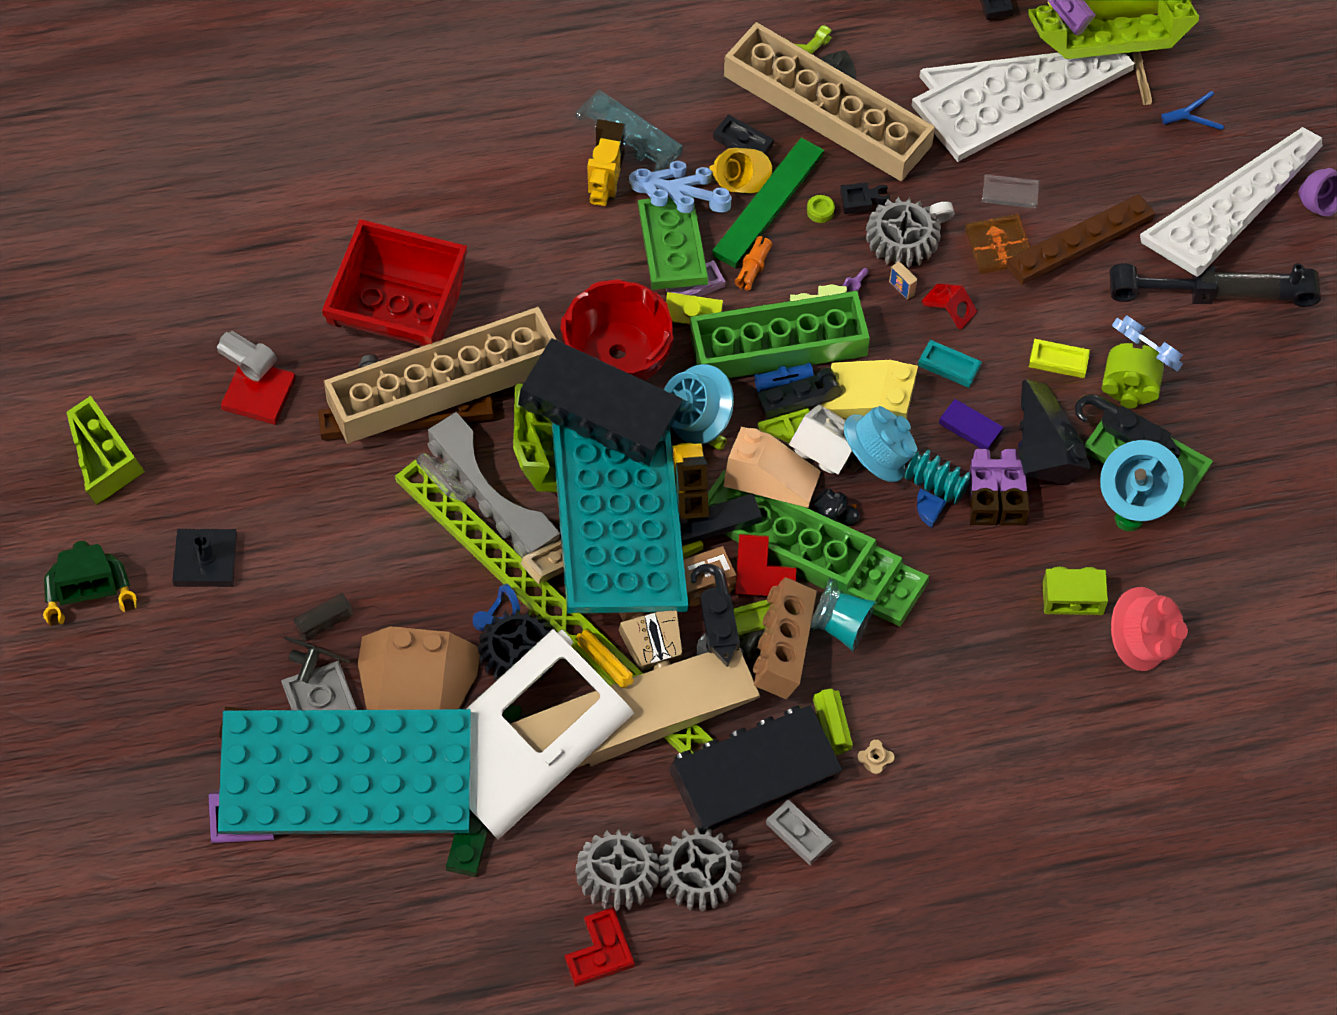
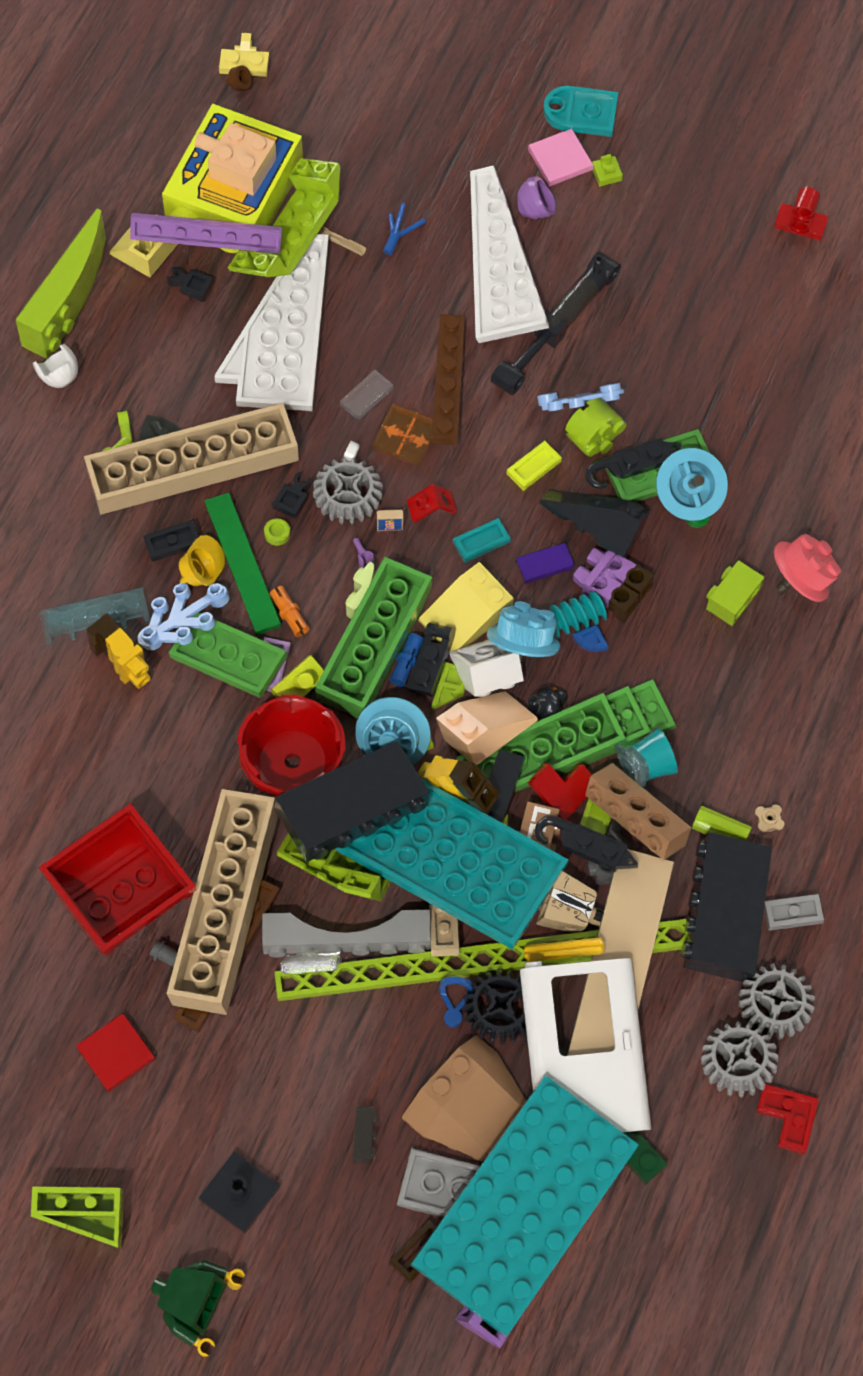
camera: 55 degrees left, 5 degrees up
(251, 358) = (89, 1036): light grey piece -> none
(308, 660) = (401, 1169): pearl dark grey shield -> none

